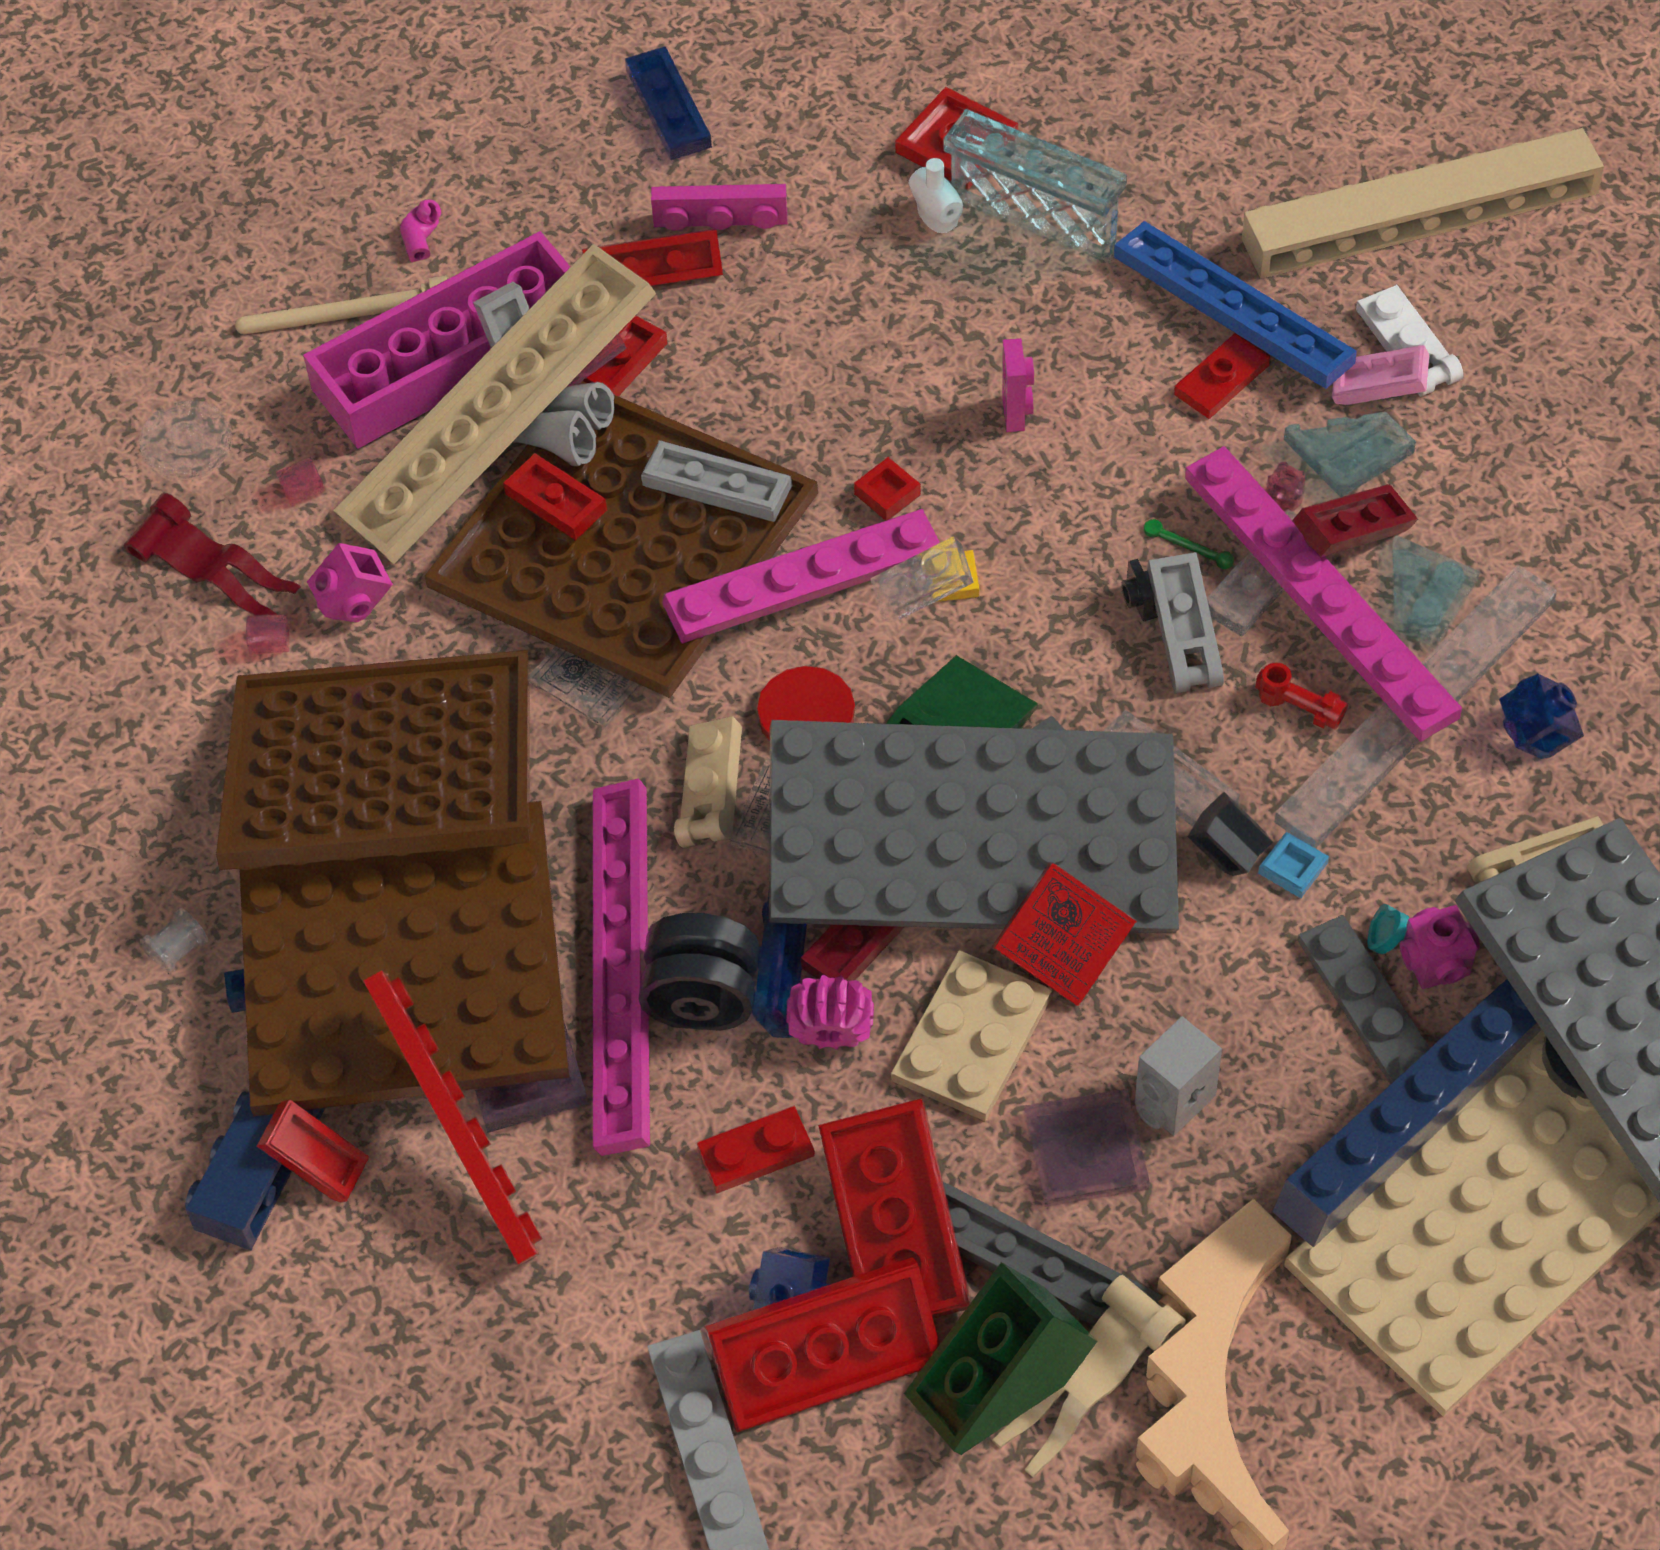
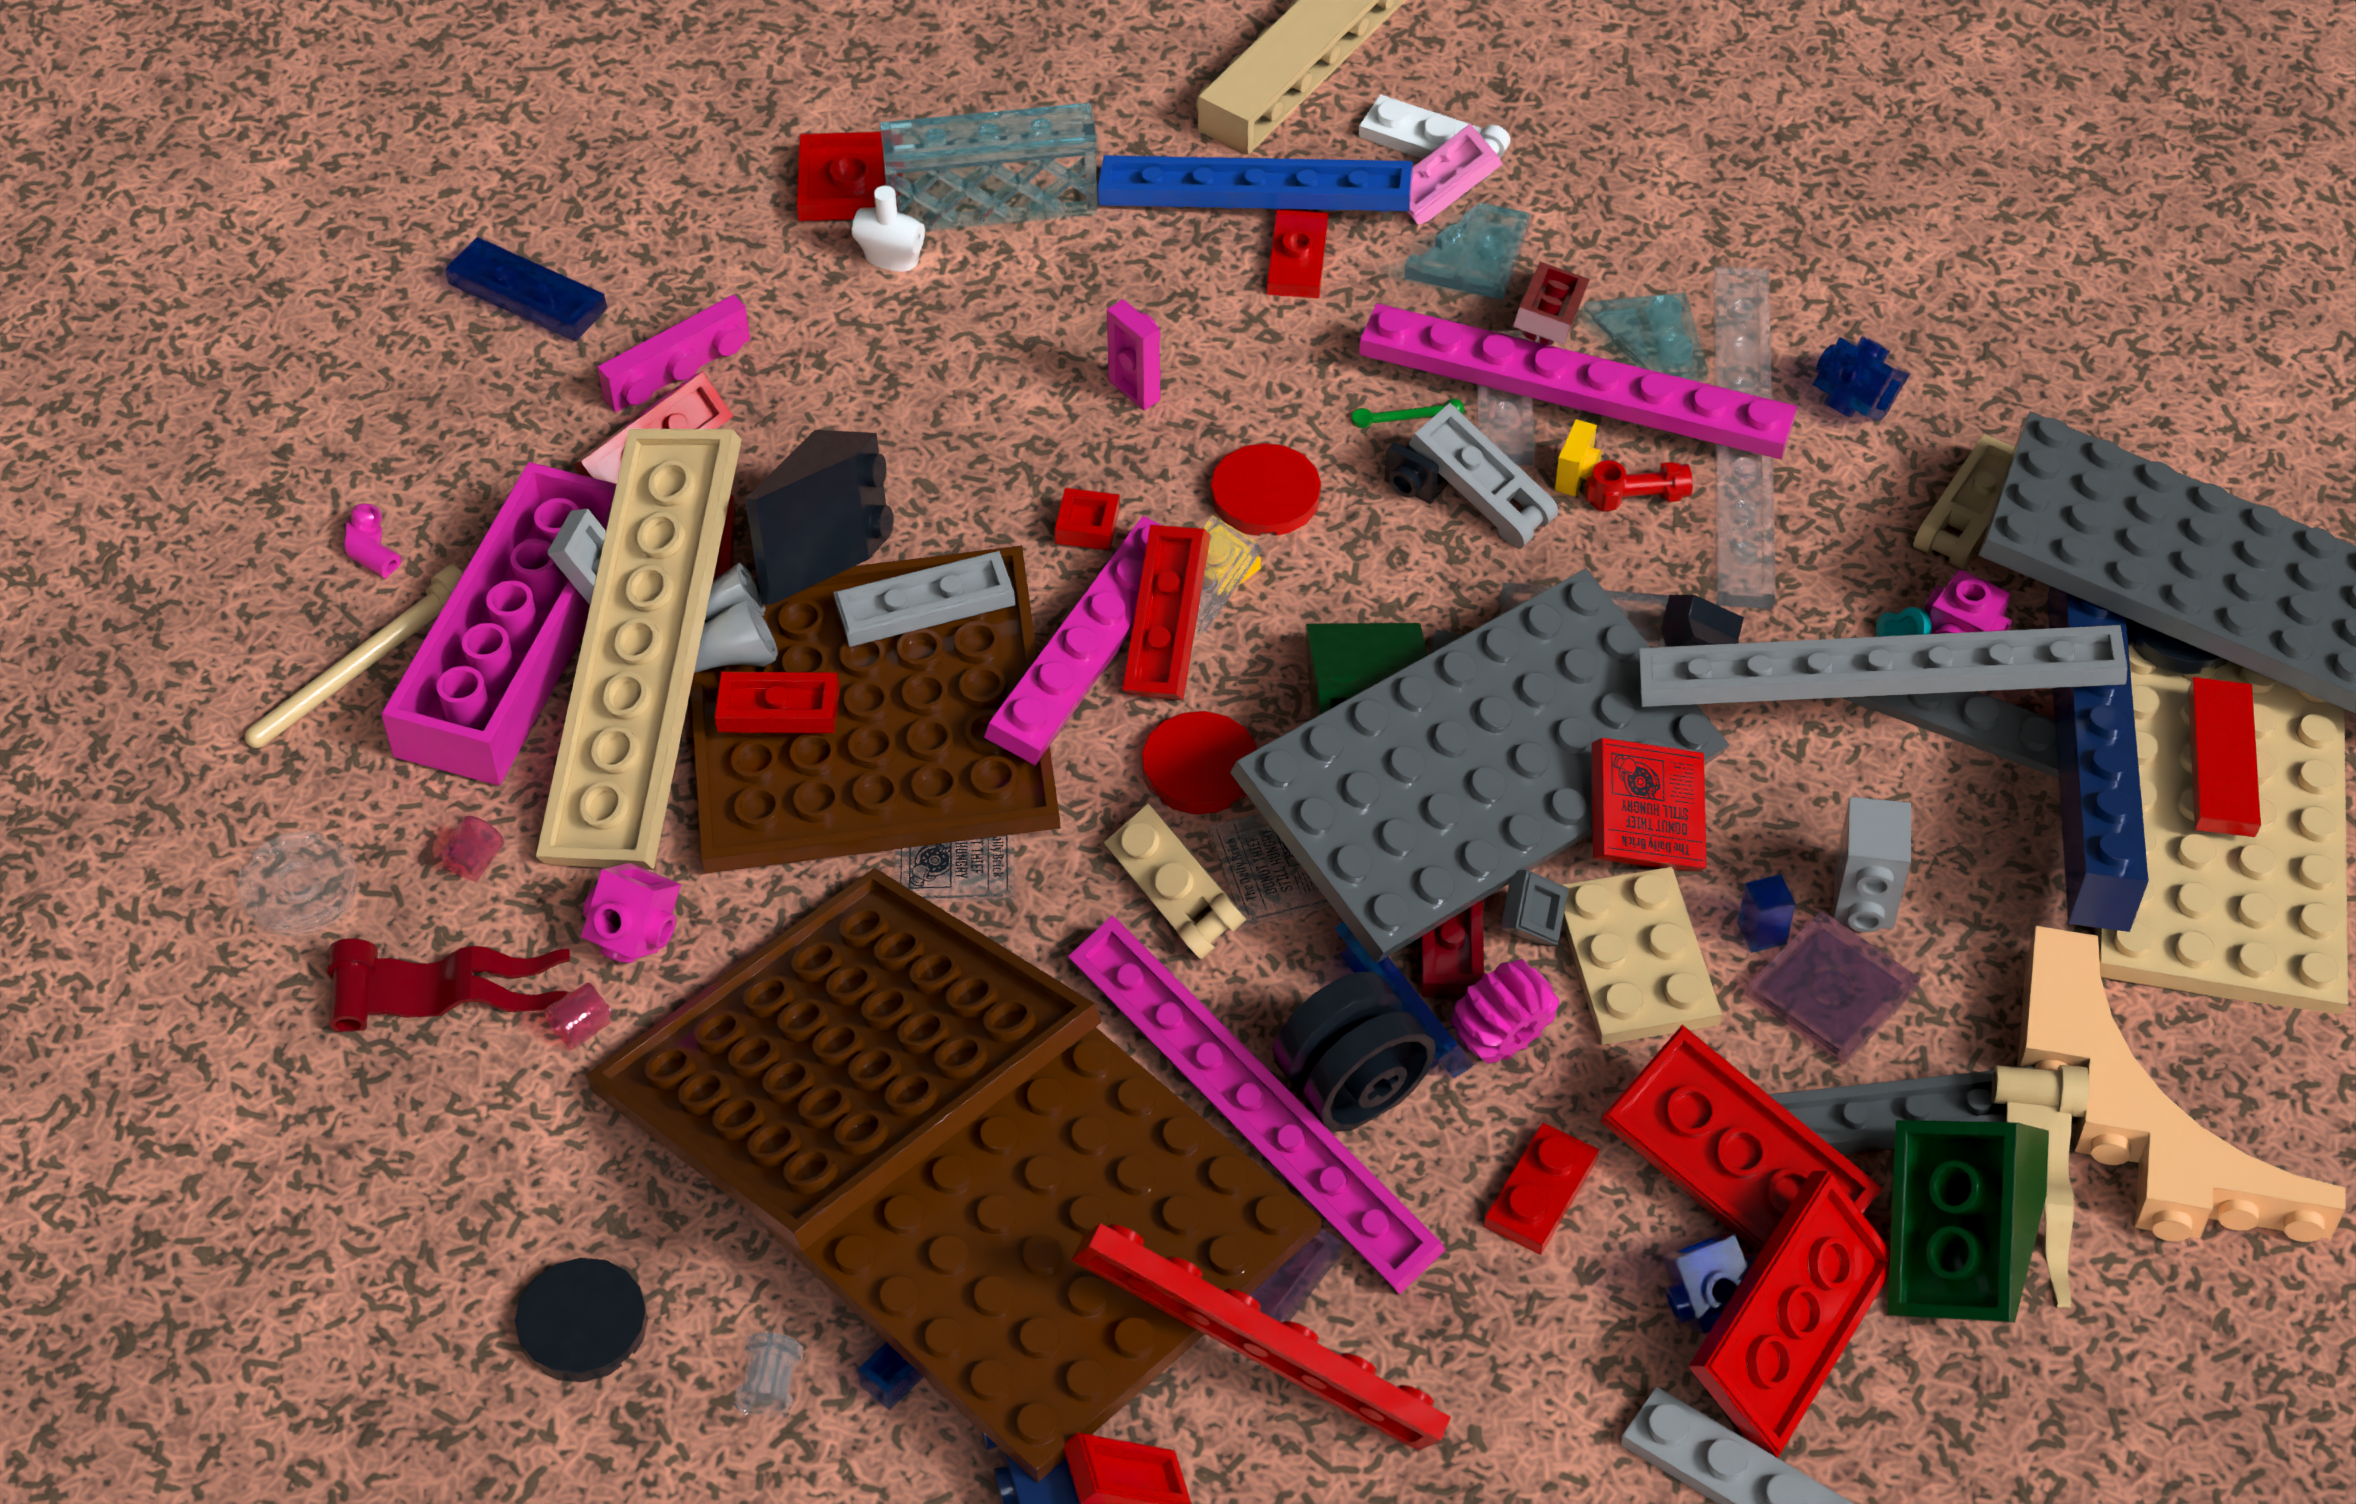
camera: 40 degrees left, 5 degrees down
(105, 832) = (581, 1319): none -> black tile
(685, 376) = (818, 512): none -> black slope
(866, 588) = (1166, 612): none -> red plate
(923, 955) = (1534, 908): none -> dark grey tile
(1032, 540) = (1265, 489): none -> red tile
(1078, 1063) = (1766, 913): none -> clear blue piece
(1268, 647) = (1577, 458): none -> yellow plate
(1286, 486) = (1452, 306): clear pink hose -> none
(1293, 865) = (1768, 623): dark azure tile -> none
(1308, 940) = (1883, 666): none -> light grey plate
(1523, 1170) = (2224, 757): none -> red tile

